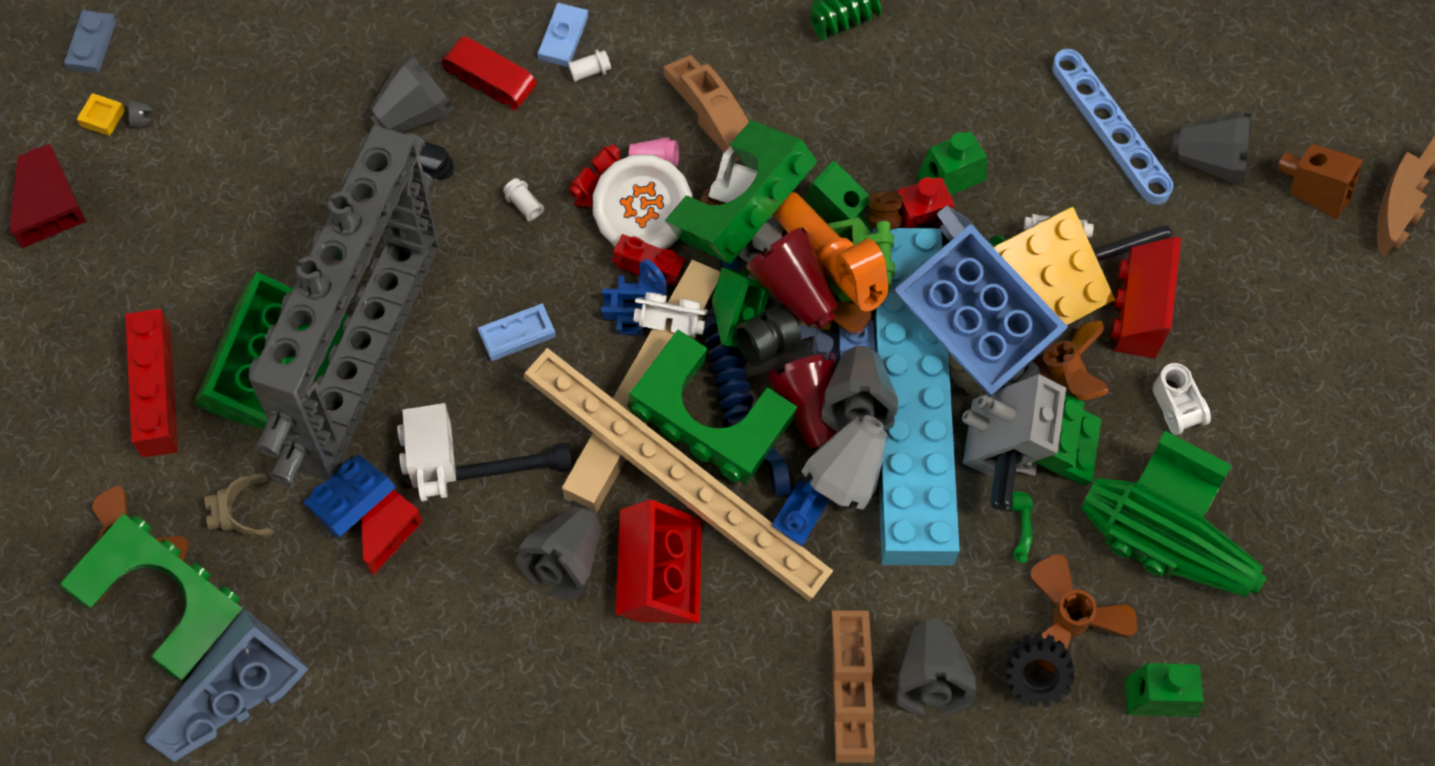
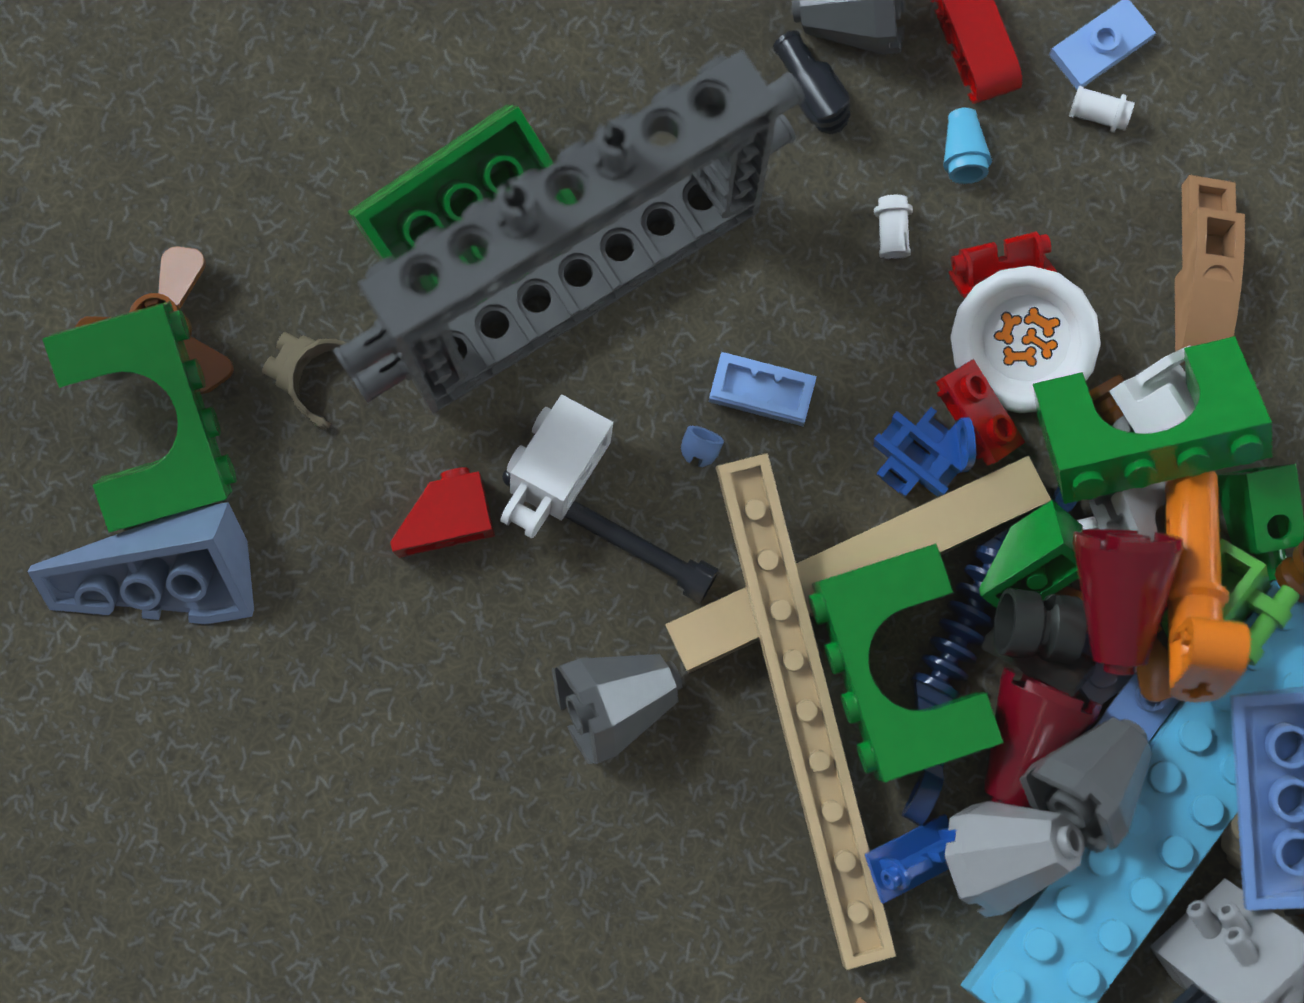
camera: 40 degrees right, 15 degrees up
(151, 383) = (321, 152): red brick -> none
(348, 495) = (432, 451): blue plate -> none
(505, 384) = (701, 444): none -> medium blue hinge
(532, 134) = (965, 148): none -> medium azure cone
(656, 311) = (963, 520): white hinge -> none
(659, 564) = (707, 793): red slope -> none
(662, 148) = (1099, 282): bright pink cone -> none

